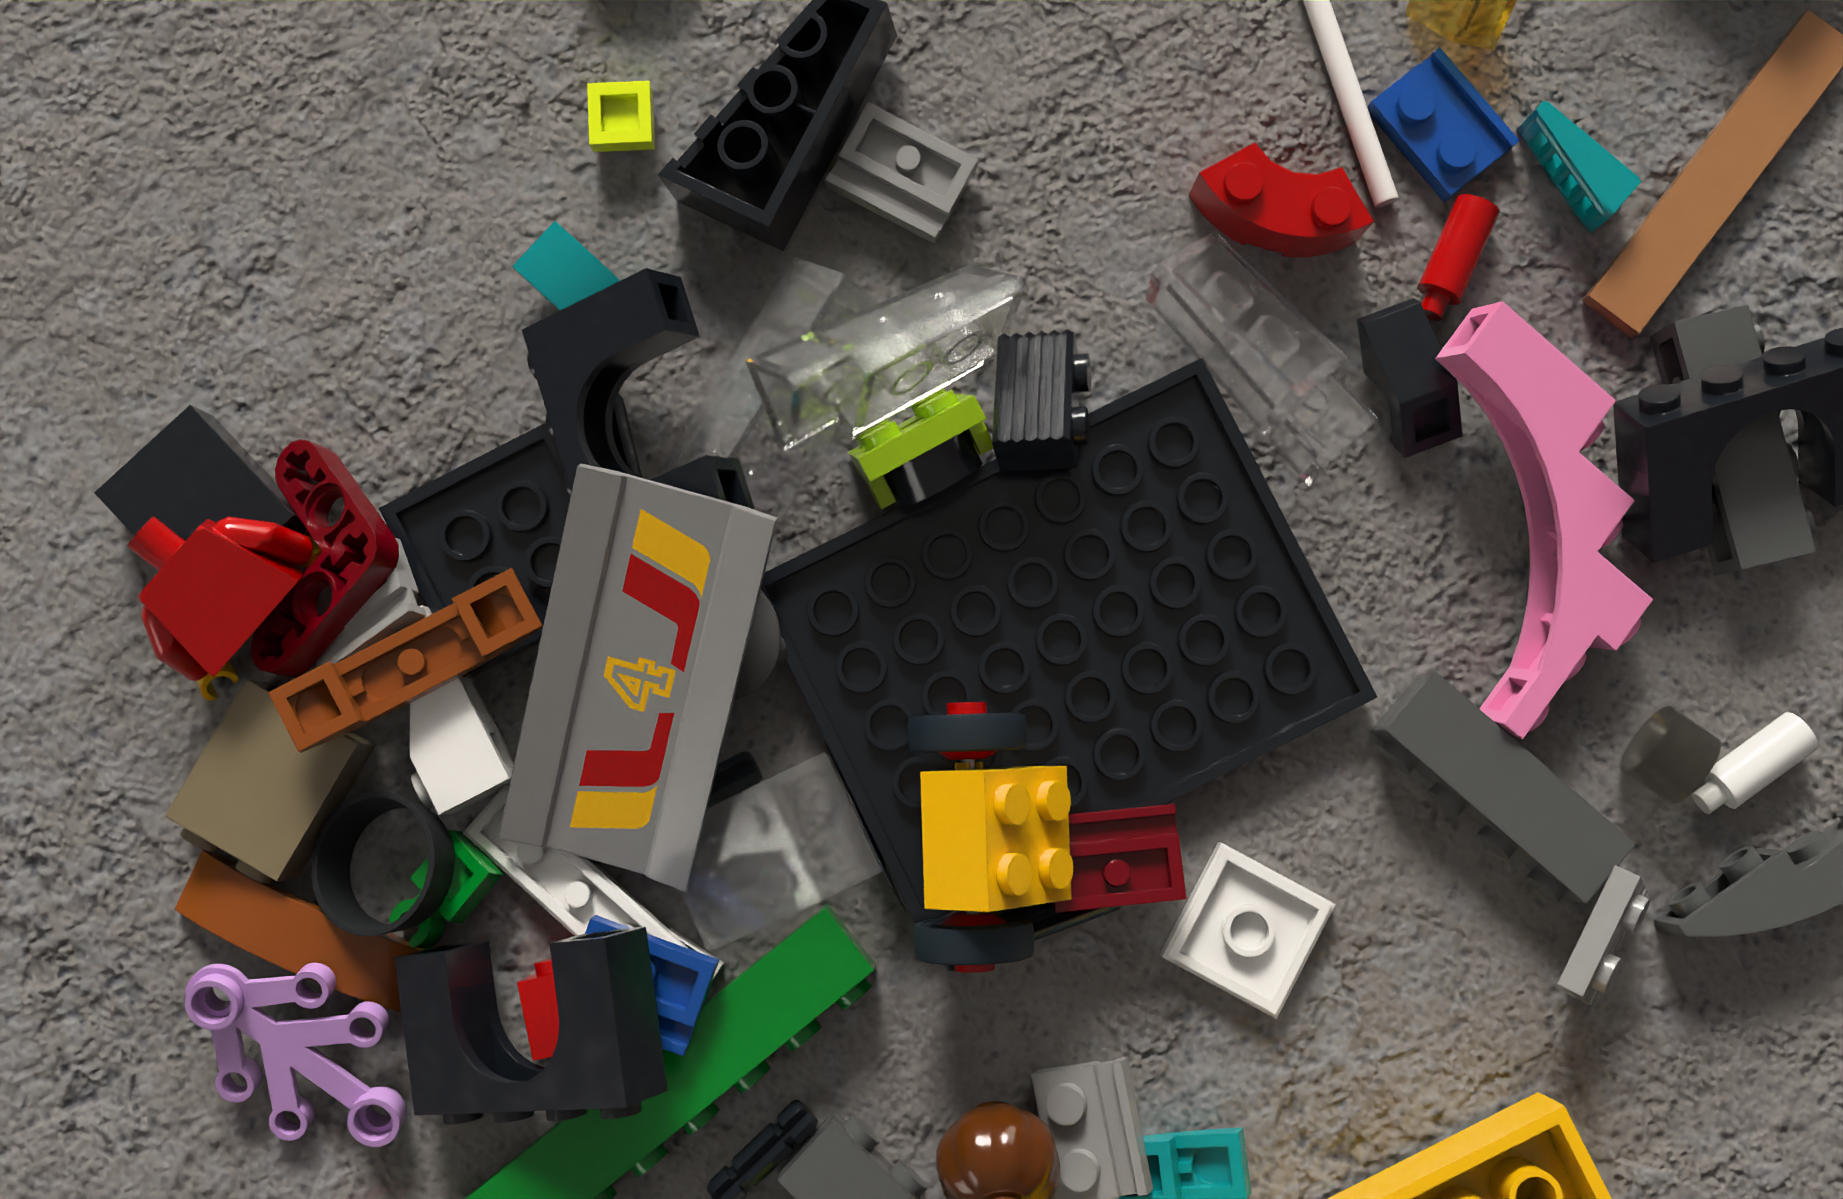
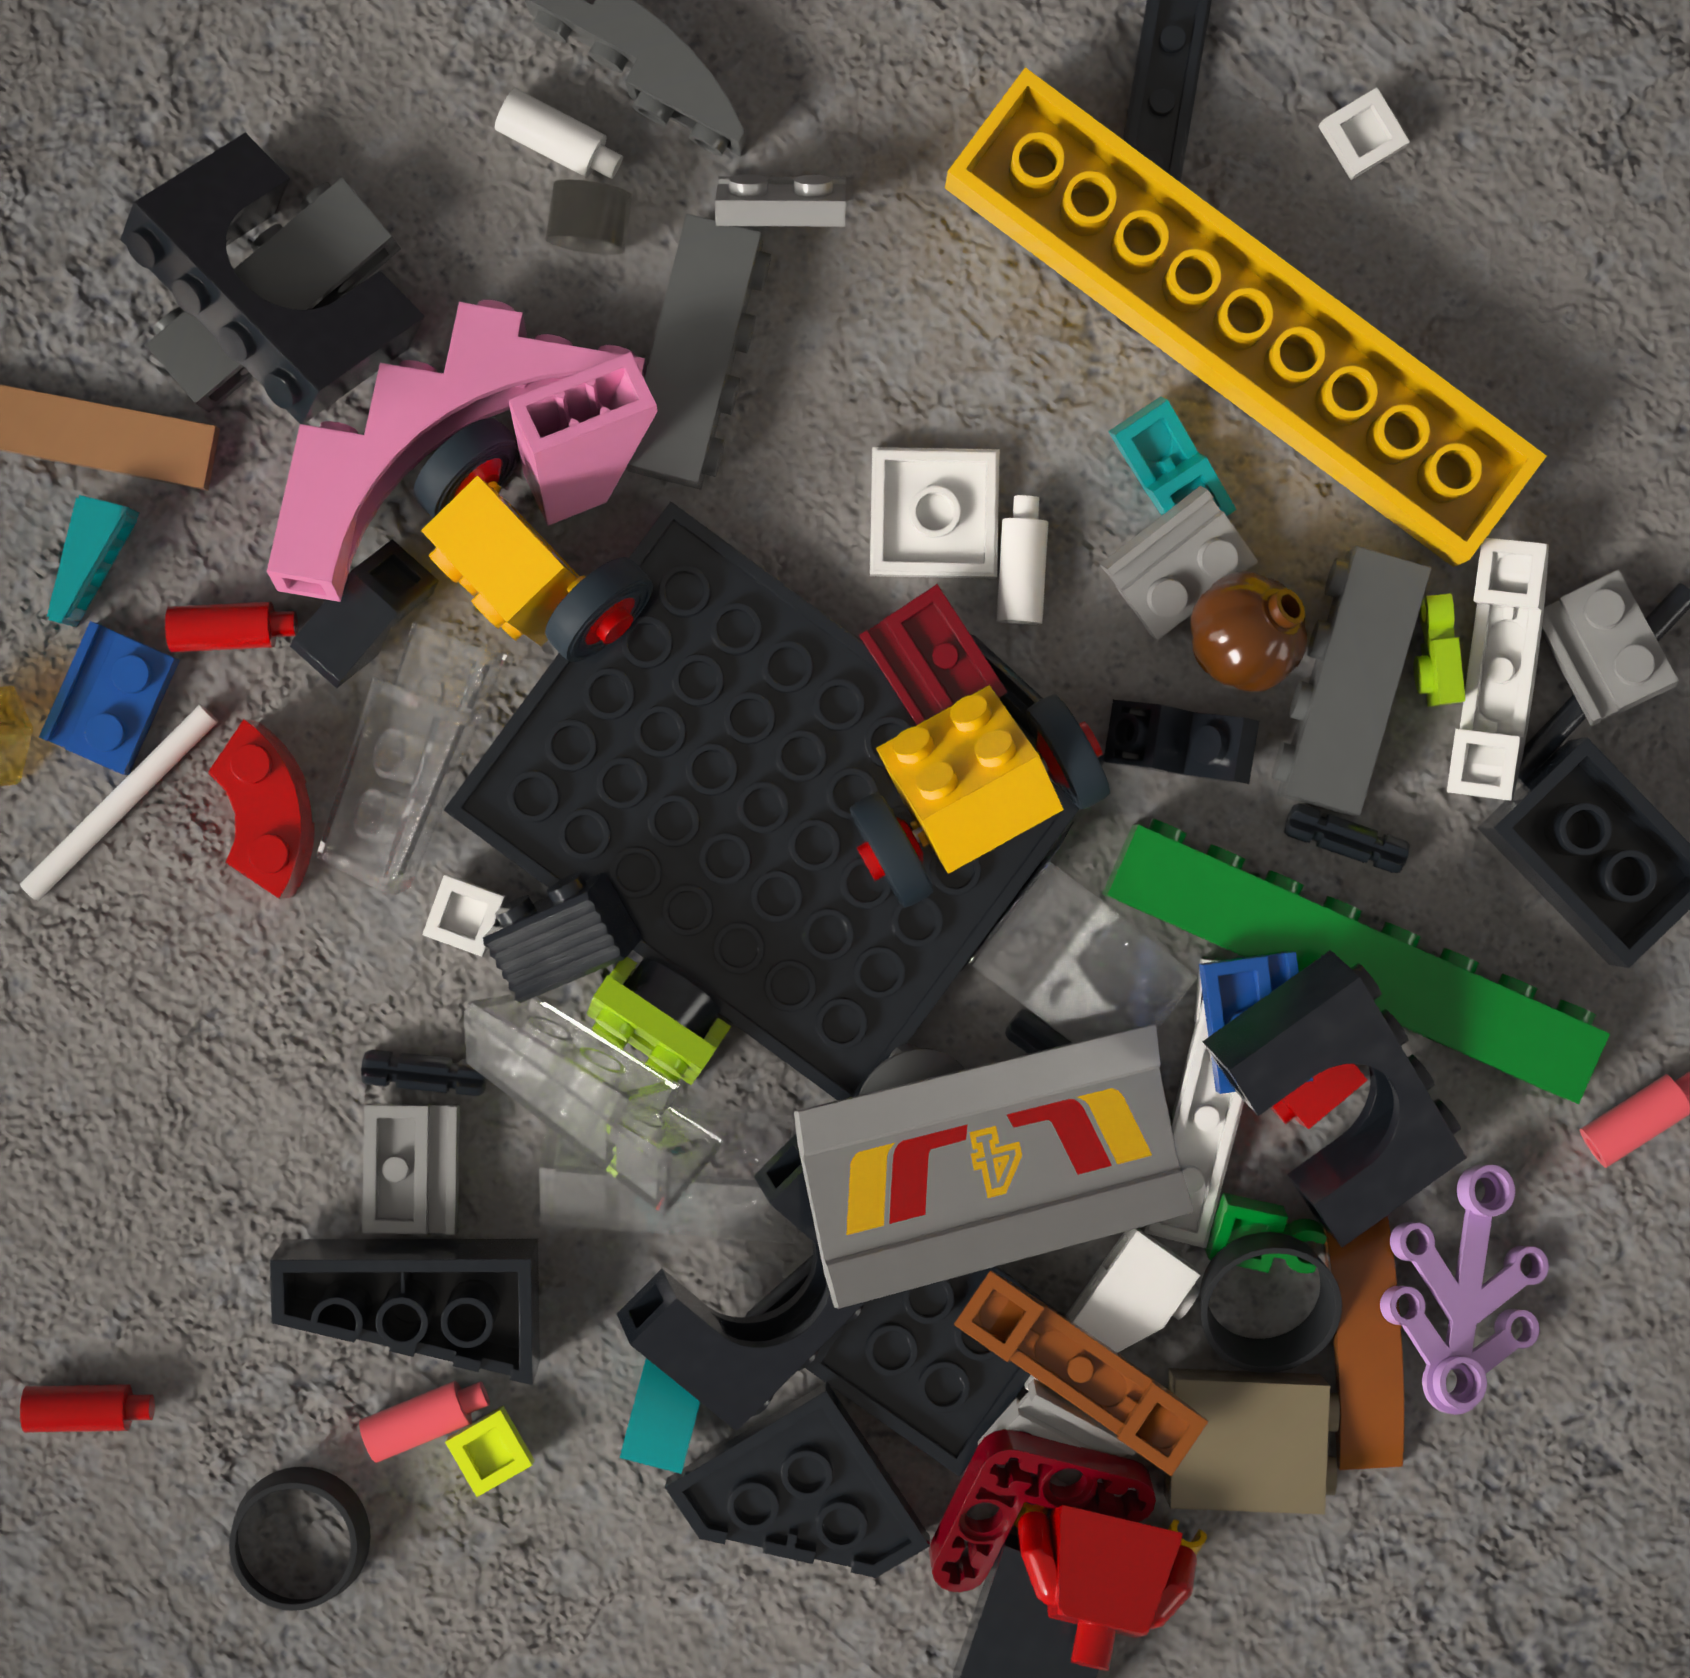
camera: 120 degrees left, 5 degrees up
(440, 367) = (802, 1491): none -> black plate
(680, 72) = (421, 1419): none -> coral cylinder
(927, 1048) = (1181, 741): none -> black slope
(980, 223) = (421, 1073): none -> black axle
(1101, 328) = (463, 914): none -> white plate
(1161, 986) = (1022, 564): none -> white cylinder
(1400, 522) = (507, 563): none -> brick
(1485, 645) = (581, 435): none -> bright pink slope

